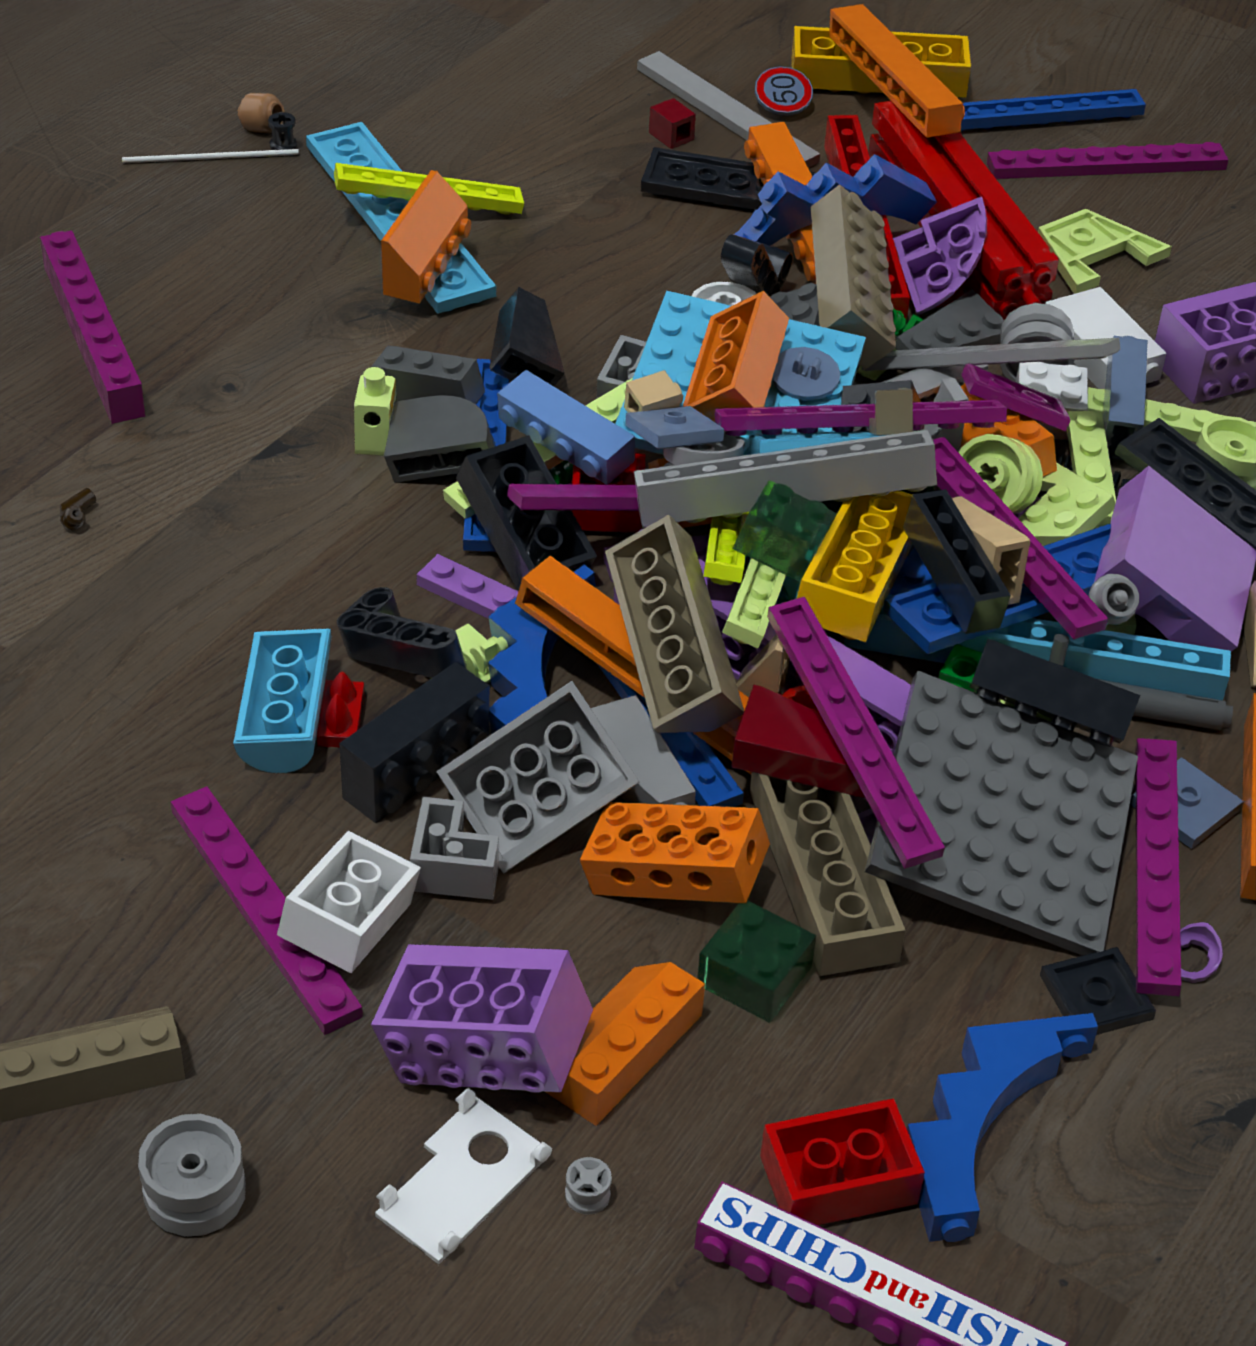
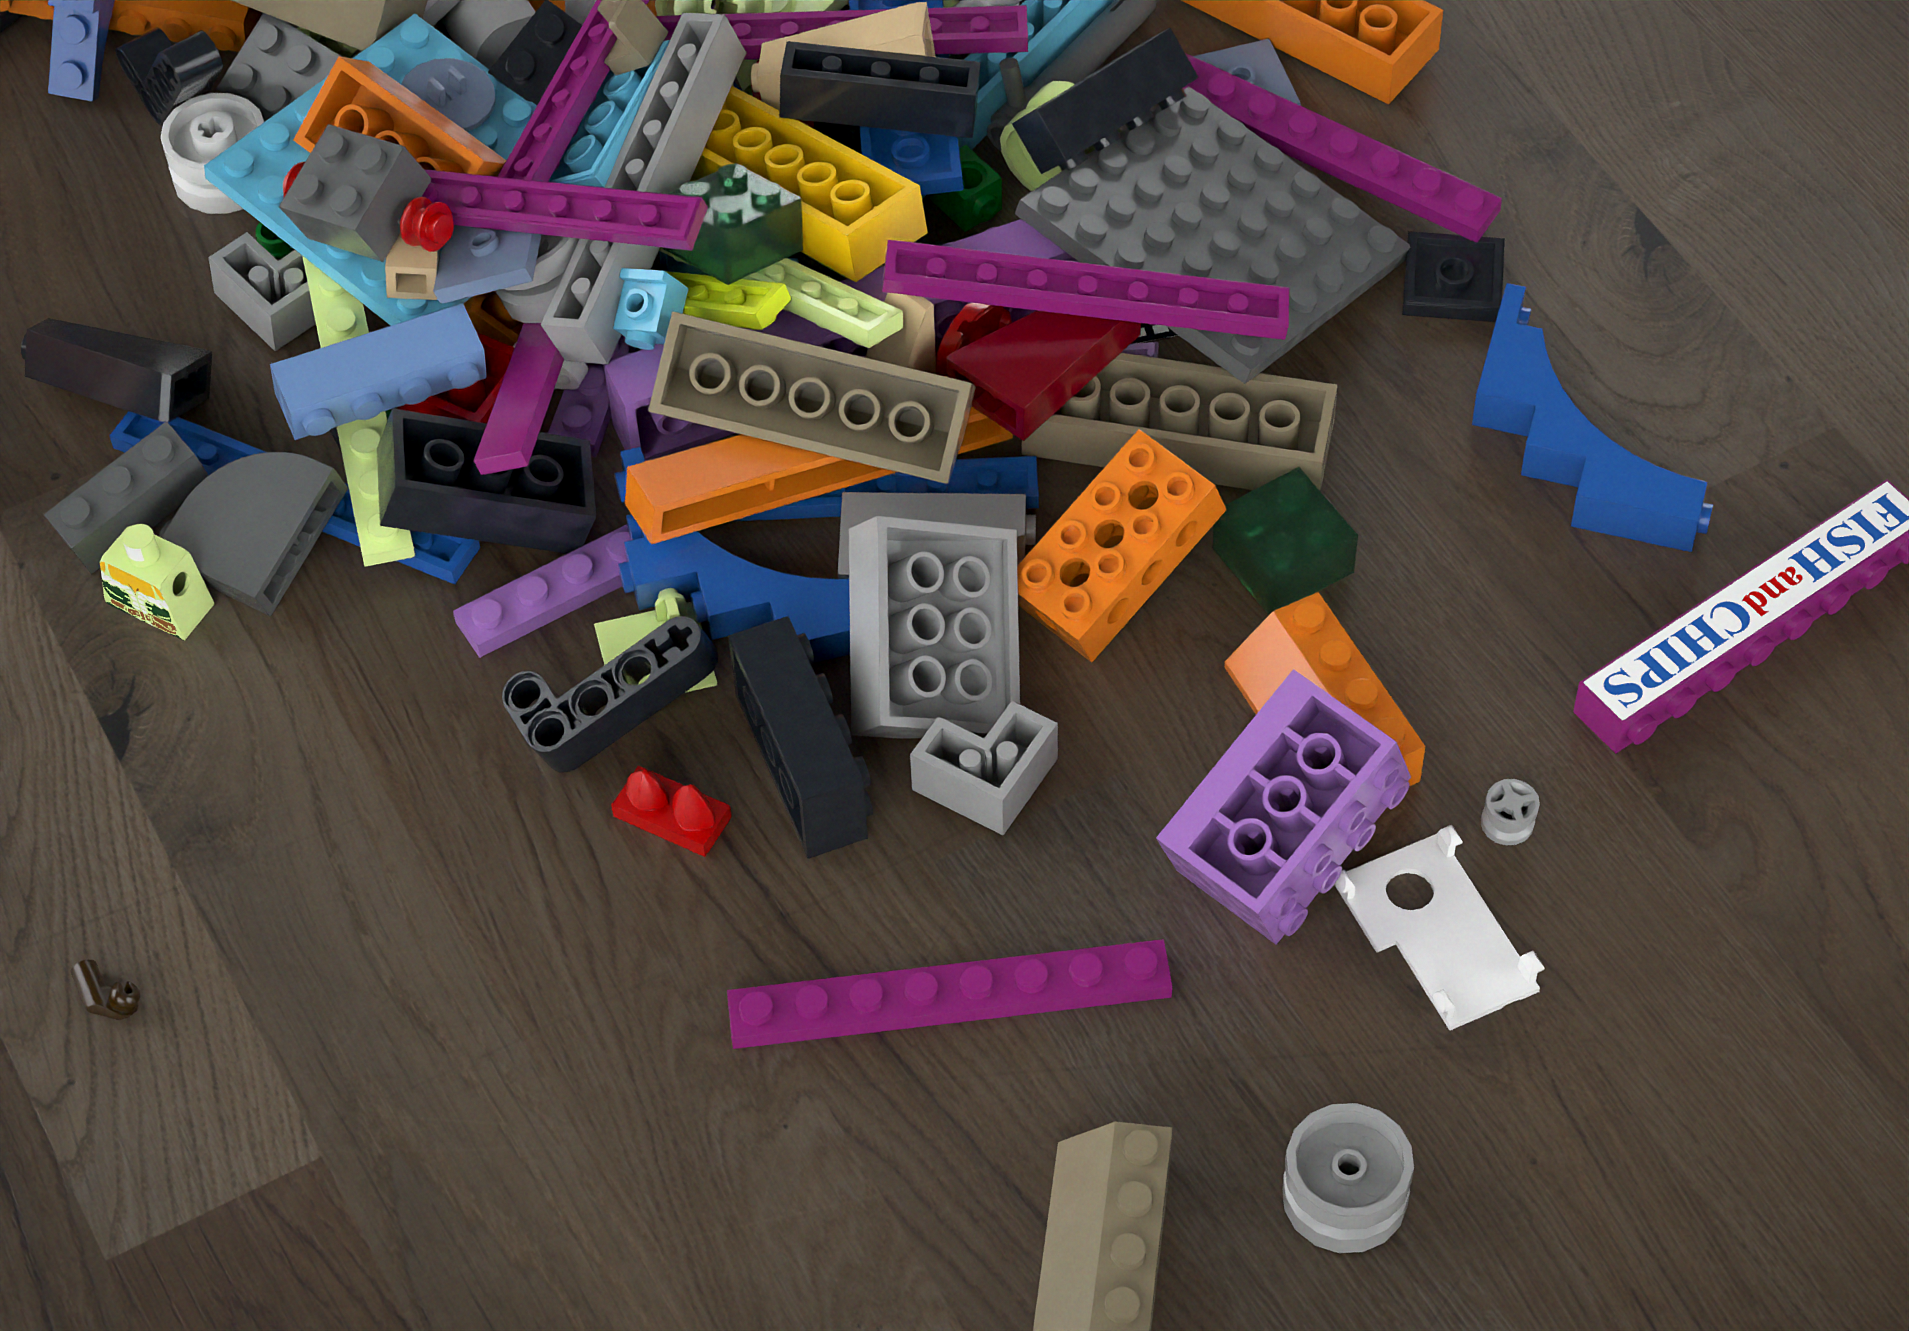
camera: 60 degrees left, 10 degrees up
(282, 699) = (633, 848): medium azure brick -> none
(348, 901) = (1027, 887): white brick -> none
(661, 344) = (363, 195): none -> dark grey brick
(696, 518) = (647, 306): none -> medium azure brick
(709, 418) = (569, 209): none -> magenta tile
(842, 1163) = (1594, 574): red brick -> none
(1206, 937) = (1444, 152): medium lavender piece -> none

